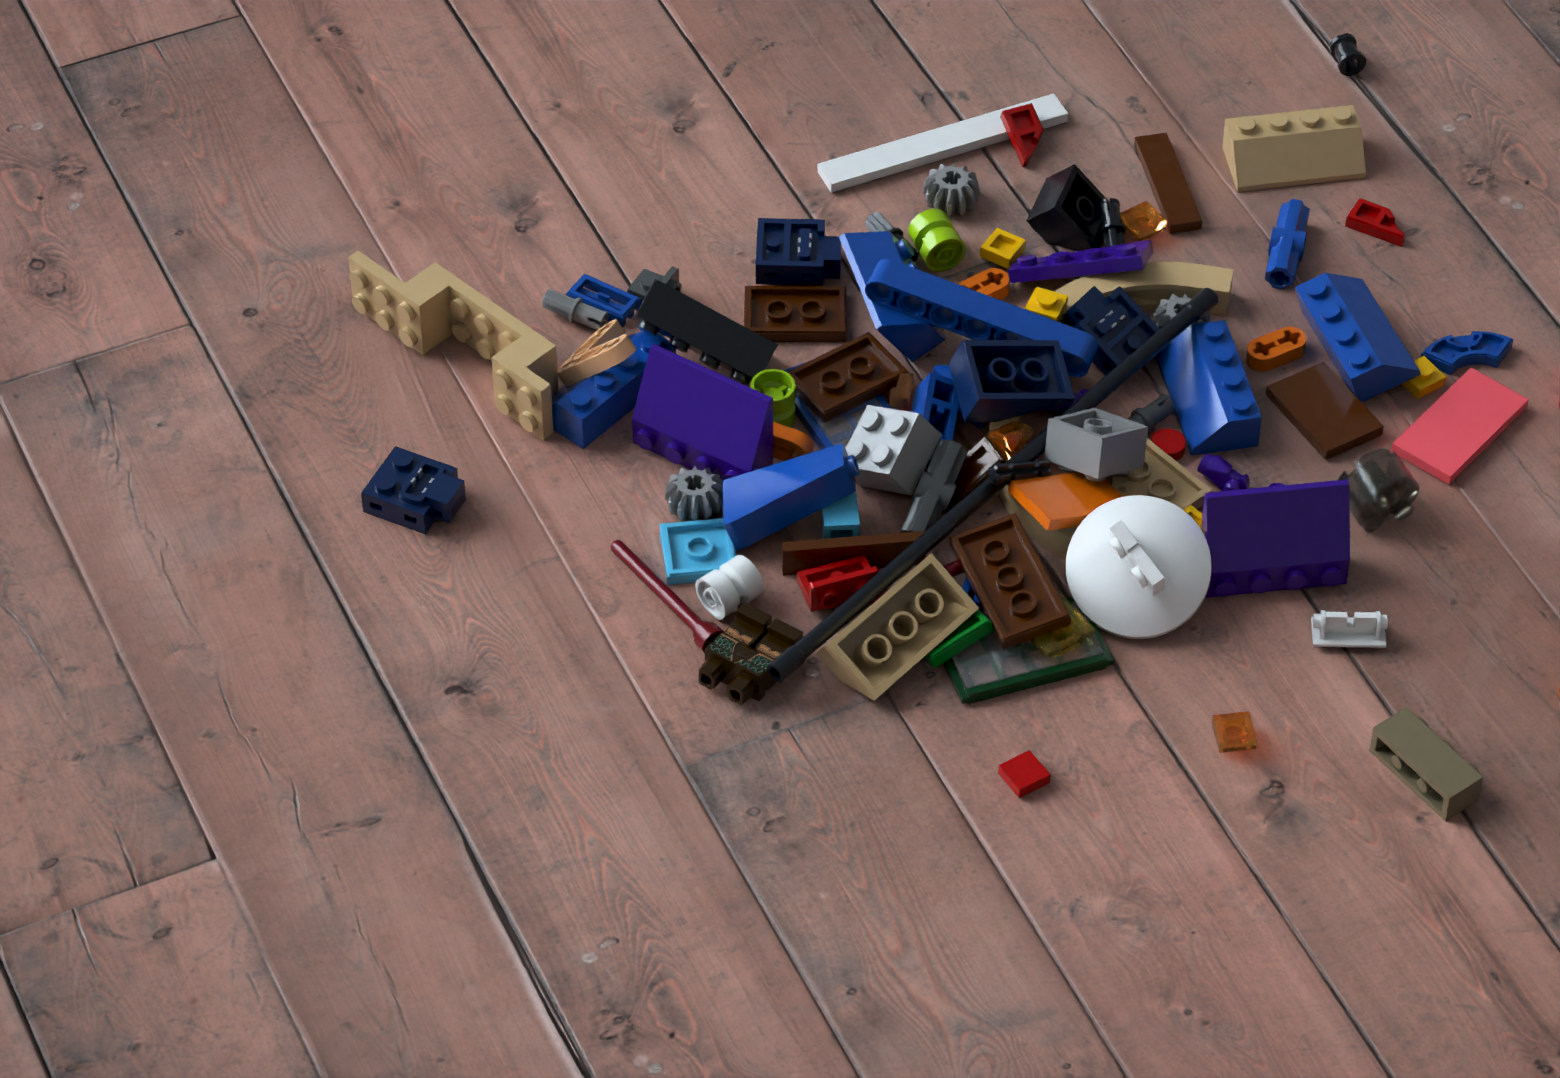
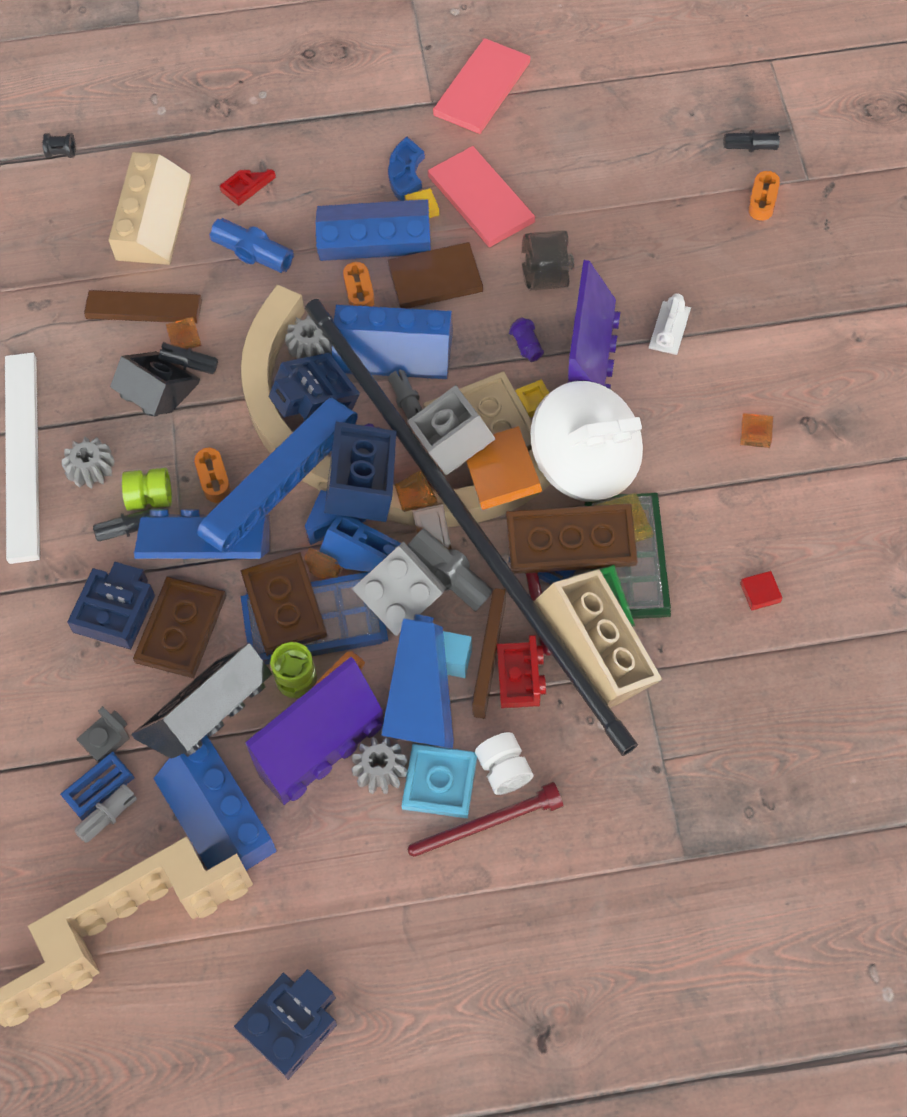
camera: 70 degrees left, 15 degrees up
(598, 353) = (157, 794): light nougat beam -> none
(744, 652) = (585, 768): dark brown hips -> none
(1002, 248) = (172, 443): yellow plate -> none
(1018, 470) = (467, 494): black axle -> none
(1023, 130) = (42, 389): red tile -> none
(1047, 303) = (272, 425): yellow plate -> none
(1081, 263) = (225, 381): dark purple wing -> none
(1170, 442) = (434, 387): red tile -> none
(1222, 474) = (487, 360): dark purple arm -> none
(1426, 763) = (819, 316): dark tan brick -> none

